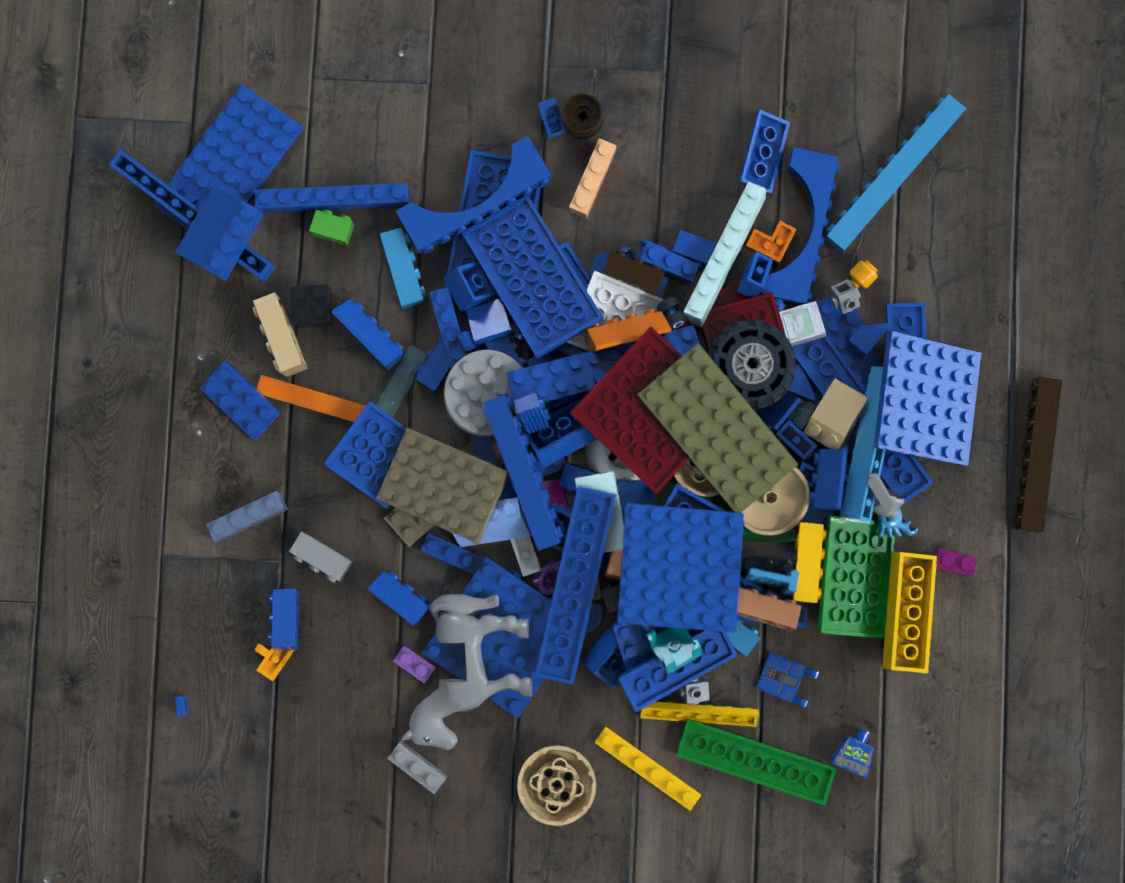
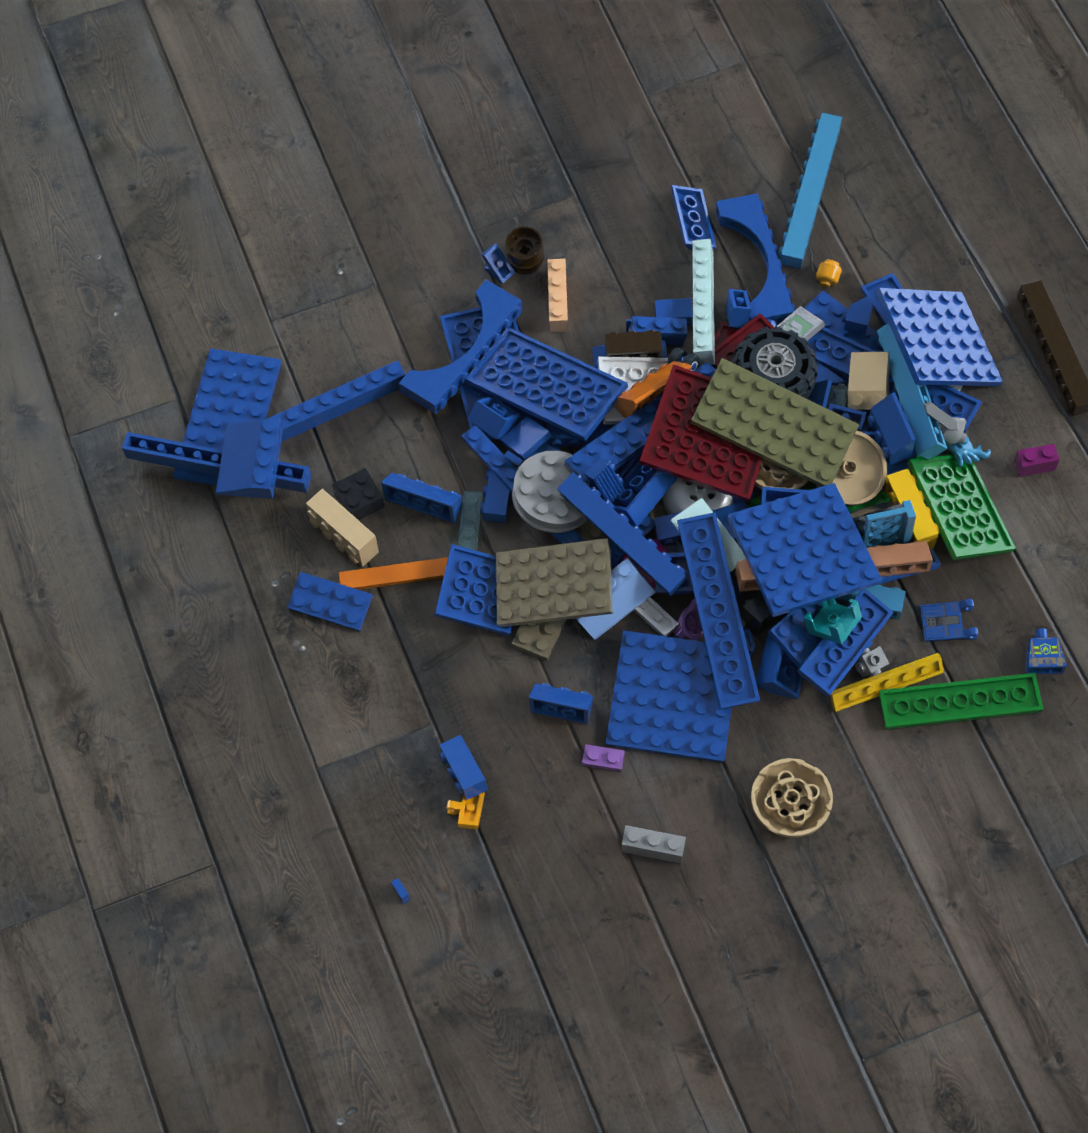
camera: 25 degrees left, 20 degrees down
(247, 516) = (383, 695): sand blue brick -> none
(320, 557) = (469, 701): light grey brick -> none
(332, 227) = (346, 426): bright green brick -> none
(402, 267) = (426, 432): dark azure brick -> none
(452, 554) = (589, 648): blue plate -> none
(463, 694) = (663, 757): light grey animal -> none
(648, 768) = (866, 752): yellow plate -> none
(774, 246) = (742, 281): orange plate -> none
(845, 296) = (824, 290): light grey brick -> none
(909, 612) = (1022, 514): yellow brick -> none

